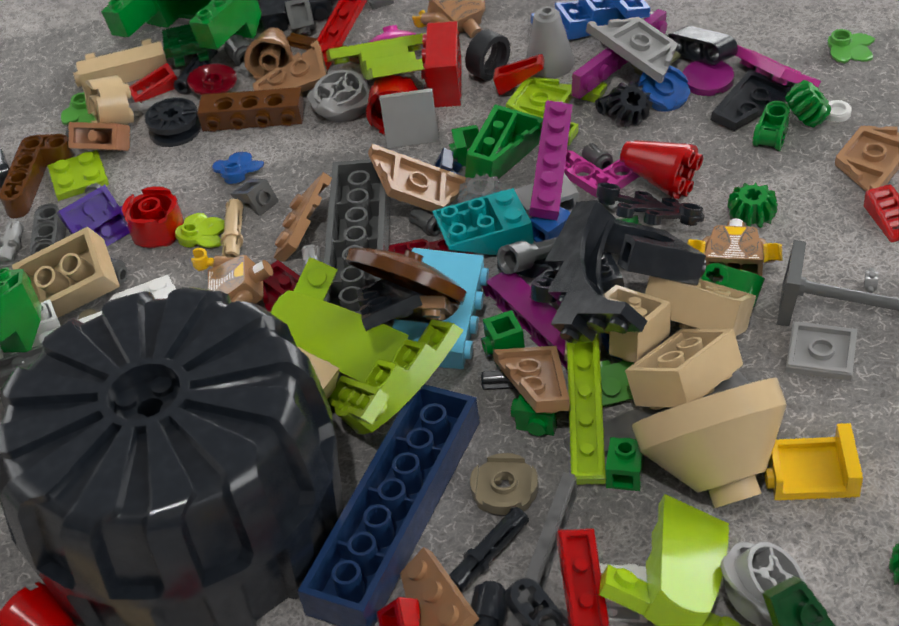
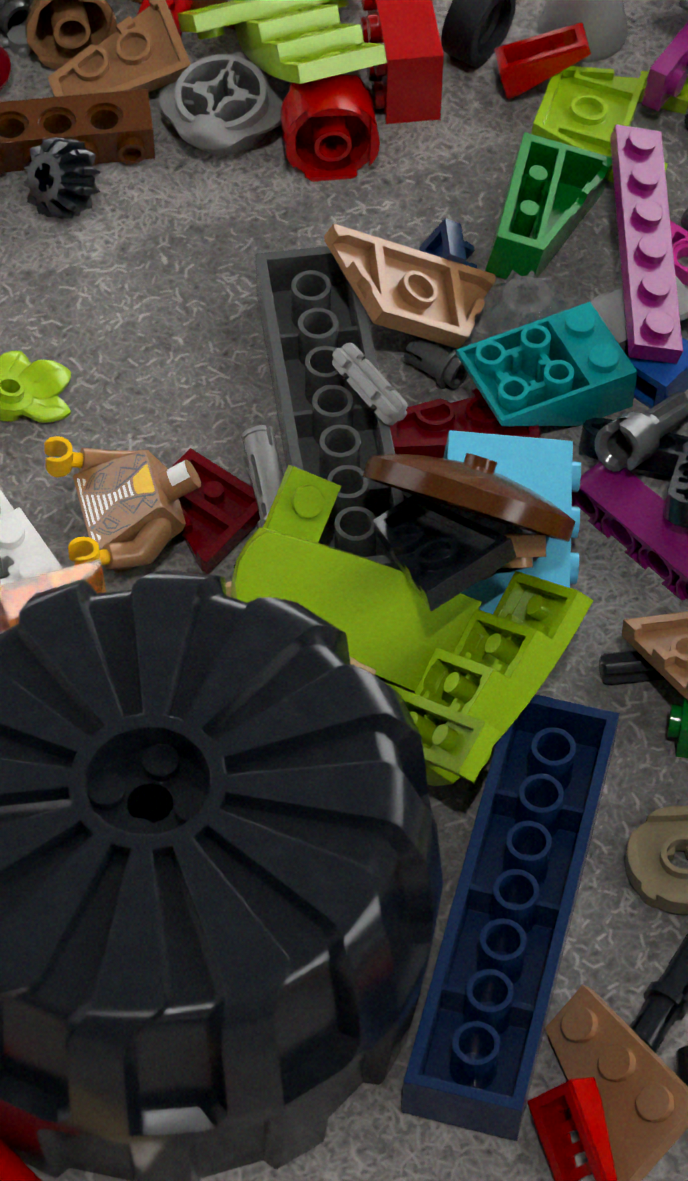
camera: 15 degrees left, 10 degrees up
(232, 237) = (89, 401): tan pin -> none
(236, 167) = (57, 253): blue plate -> none
(244, 128) = (61, 178): none -> black gear
(257, 194) = (113, 310): dark grey bracket -> none
(298, 219) = (207, 364): medium nougat wing -> none
(375, 224) = (369, 384): none -> light grey axle
(409, 118) = (367, 155): light grey tile -> none
(462, 140) = (465, 203): green bracket -> none
(502, 333) = (629, 589): green brick -> none

